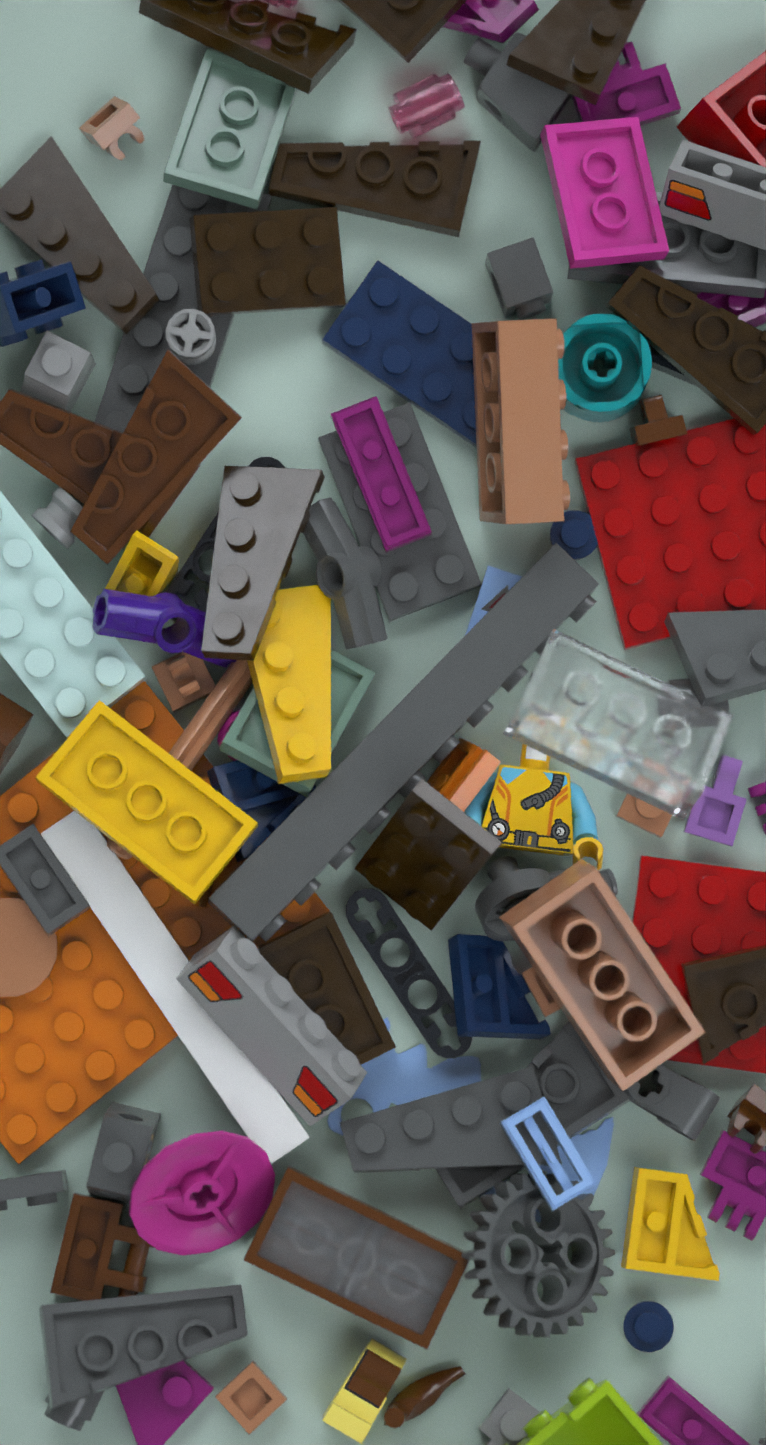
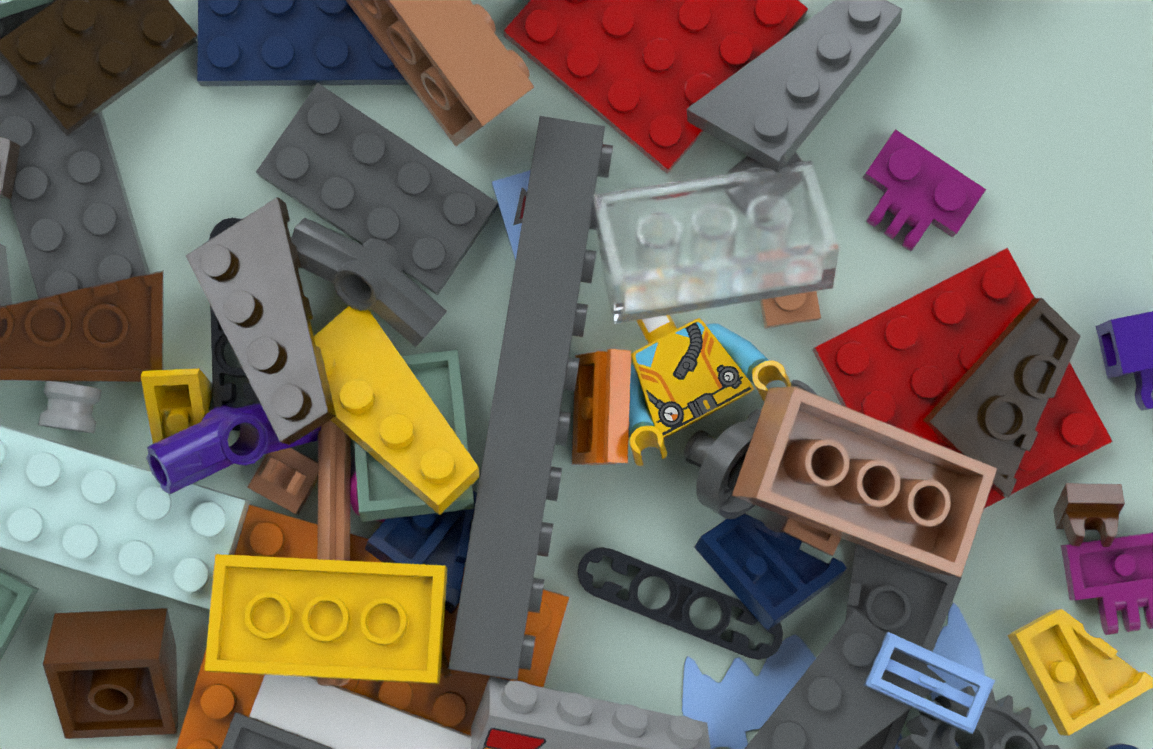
camera: 35 degrees left, 0 degrees up
(160, 447) = (111, 279): reddish brown wing -> none
(191, 327) = (62, 148): light grey wheel -> none
(330, 984) = (614, 665): dark brown wing -> none
(381, 474) = (335, 164): magenta tile -> none
(427, 854) = (623, 482): dark brown plate -> none
(574, 534) = (550, 99): dark blue plate -> none
(676, 1101) = (1008, 549): dark grey piece -> none
(718, 810) = (859, 257): medium lavender plate -> none

